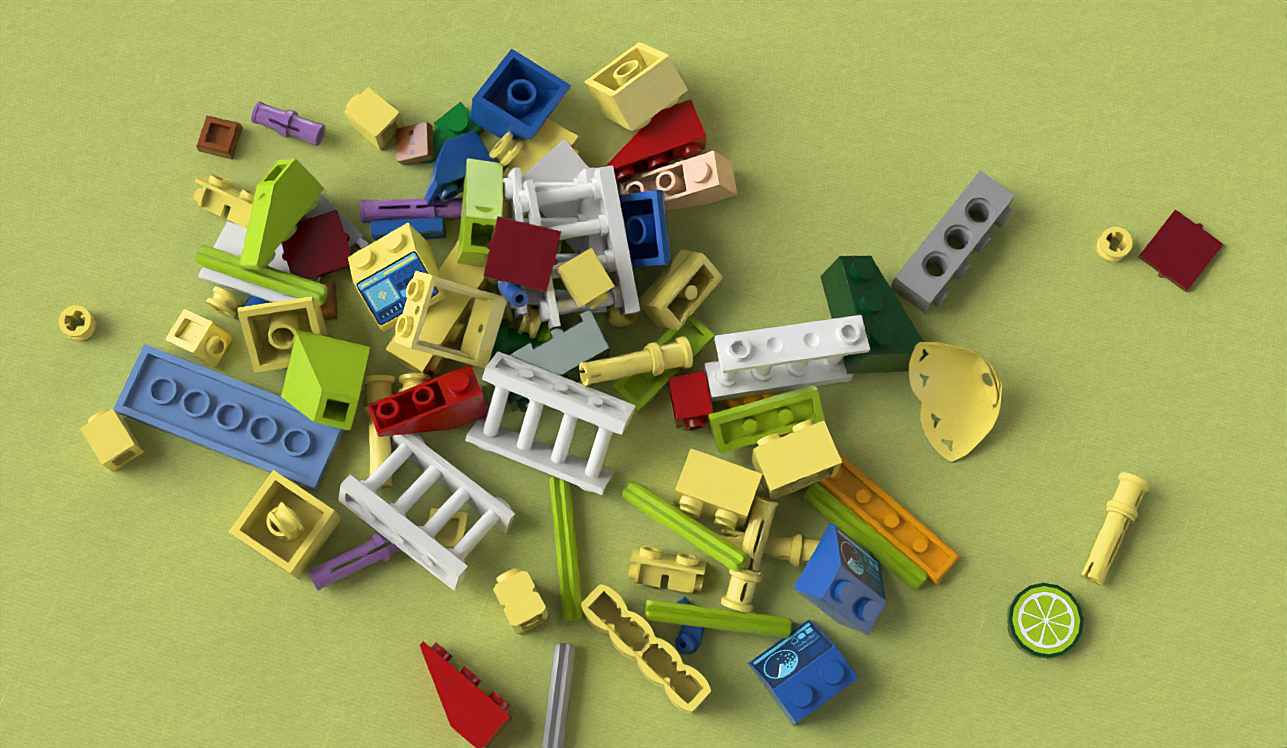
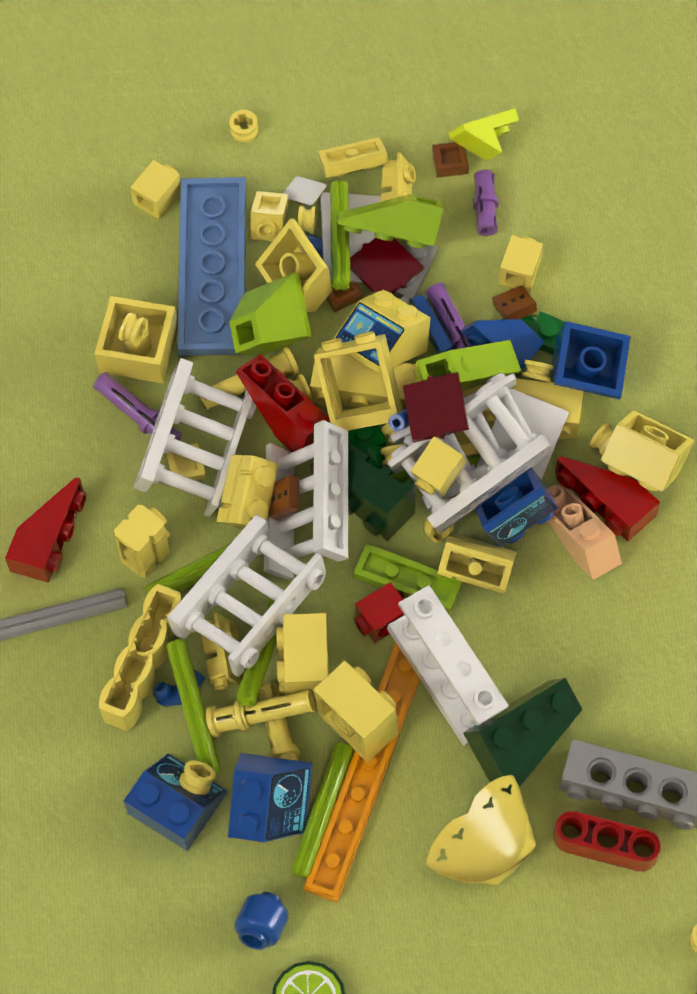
camera: 70 degrees right, 10 degrees down
(173, 228) = (353, 157): none -> light yellow plate
(186, 292) = (304, 190): none -> white sticker
(212, 92) = (482, 134): none -> neon yellow slope
(514, 477) = (247, 490): none -> light yellow brick
(537, 443) = (284, 498): none -> dark orange tile
(596, 518) = (231, 567): none -> white fence
(597, 122) = (601, 438): none -> light yellow bush
(652, 359) = (398, 559): light yellow pin -> none
(764, 417) = (391, 676): lime plate -> none
(795, 641) = (197, 777): none -> light yellow bush
(957, 635) = (261, 920): none -> blue head
(1008, 279) = (624, 835): none -> red beam

